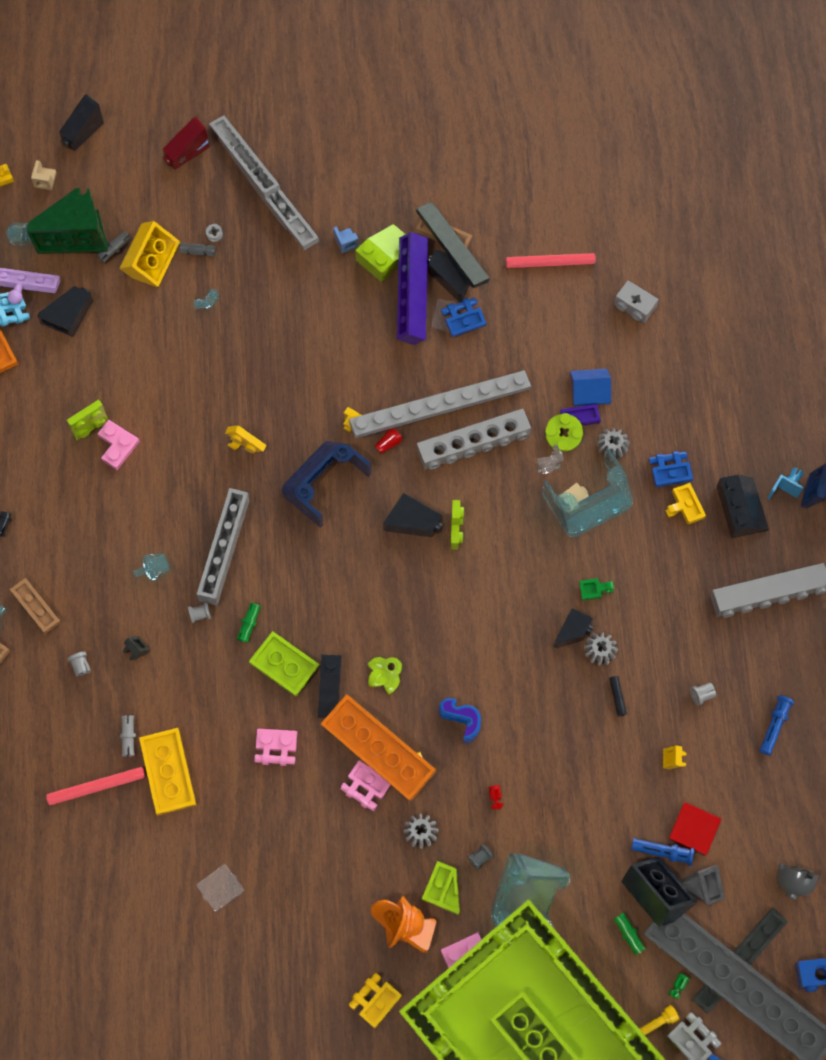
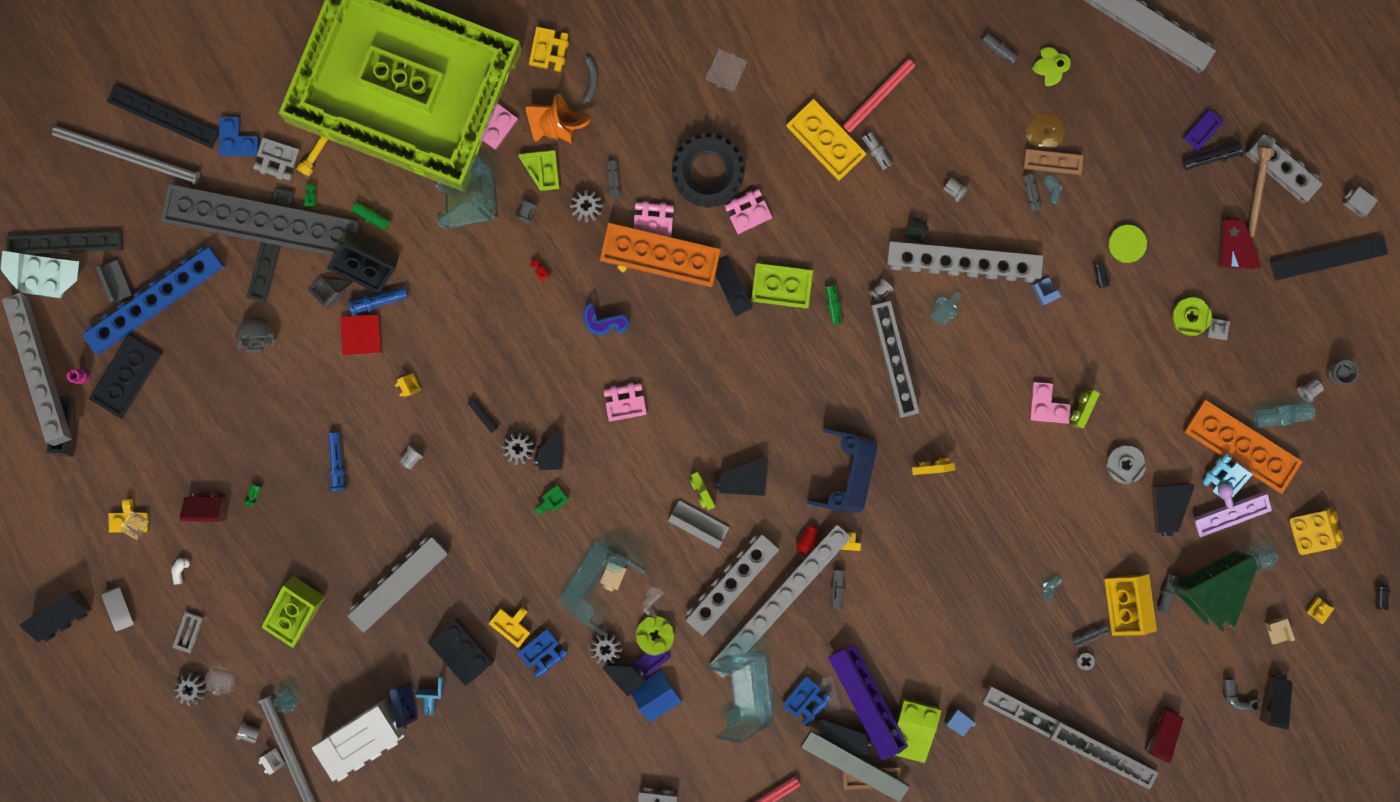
camera: 155 degrees right, 20 degrees up
(15, 626) = (1032, 192): none -> dark grey axle
(35, 606) = (1026, 218): medium nougat plate -> none
(58, 535) = (1045, 291): none -> medium blue panel
(86, 372) = (1126, 475): none -> light grey plate
(114, 146) = (1232, 698): none -> dark grey piece
(165, 639) = (1032, 262): none -> light grey brick
(288, 775) = (715, 145): none -> black tyre
(348, 948) = (593, 79): none -> dark grey piece
(382, 675) = (692, 322): lime plate -> none
(382, 843) = (613, 179): none -> dark grey axle
(385, 390) = (837, 589): none -> dark grey pin
(475, 503) = (698, 524): none -> light grey panel
(485, 633) = (625, 408): none -> bright pink plate
(509, 339) = (750, 692): none -> clear light blue windscreen
(607, 410) = (626, 676): none -> black slope

